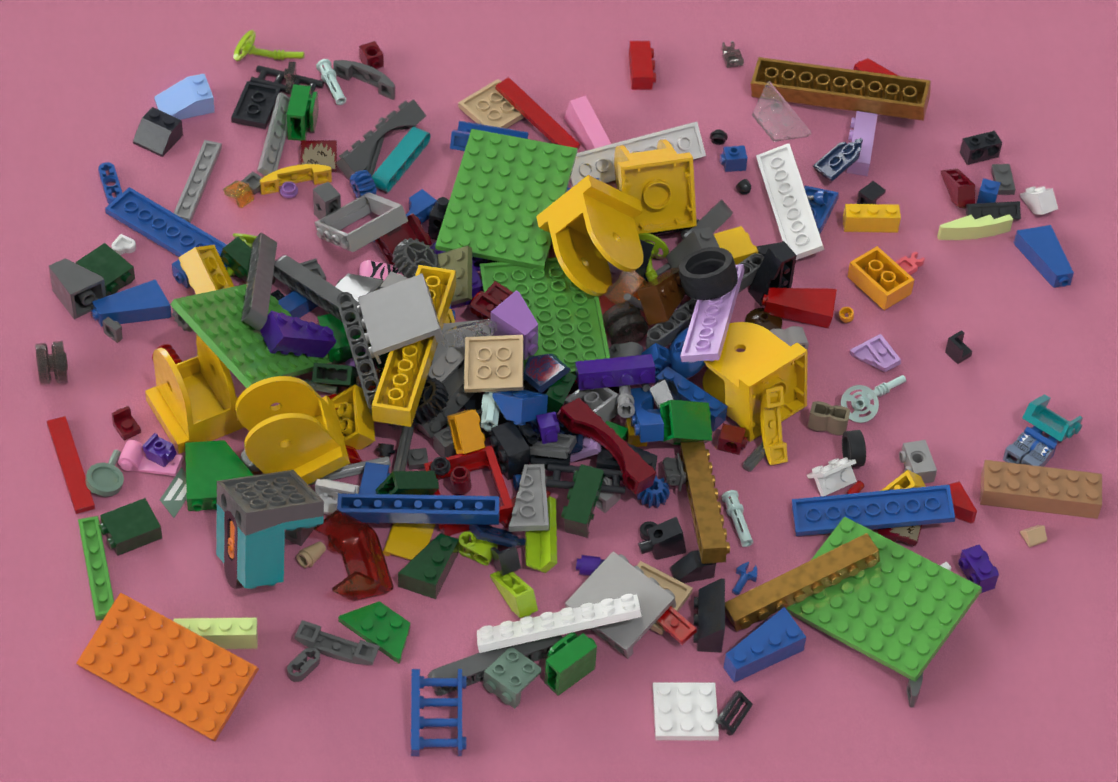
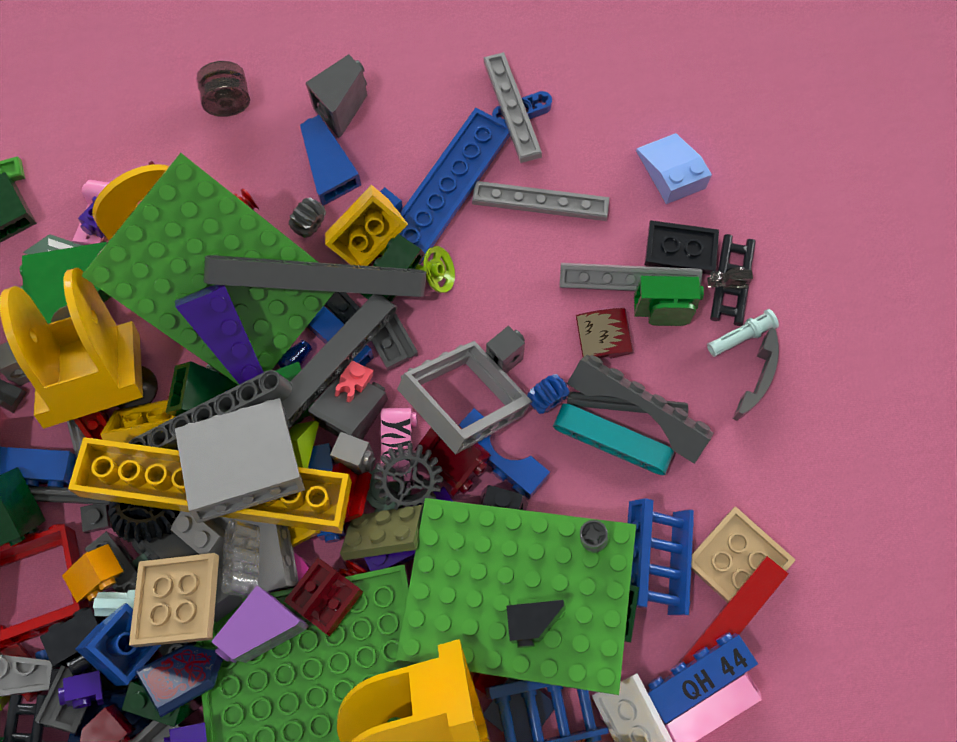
camera: 90 degrees right, 20 degrees up
(70, 465) = (96, 138): red tile -> none
(105, 478) = (71, 170): sand green piece -> none
(110, 184) = (512, 108): none -> light grey tile
(110, 266) = (378, 124): dark green brick -> none
(112, 329) = (288, 145): dark grey plate -> none
(123, 245) = (427, 138): white tile -> none
(158, 132) = (611, 144): slope -> none
(240, 191) = (523, 247): clear yellow bracket -> none
(247, 47) = (779, 221): lime dish -> none
(254, 182) = (543, 262): dark grey plate -> none
(289, 190) = (538, 306): medium lavender plate -> none
(298, 173) = (547, 285): yellow slope -> none
(329, 490) = (24, 428): white bracket -> none
(341, 283) = (353, 378): none -> coral plate
(371, 55) = (808, 371): dark red brick -> none
(440, 462) = (46, 541): black plate -> none
(461, 480) = (34, 575): dark red brick -> none
(478, 143) = (590, 533): none -> dark grey wheel
(529, 180) = (532, 621): none -> black slope
(566, 124) = (700, 677): none -> blue brick

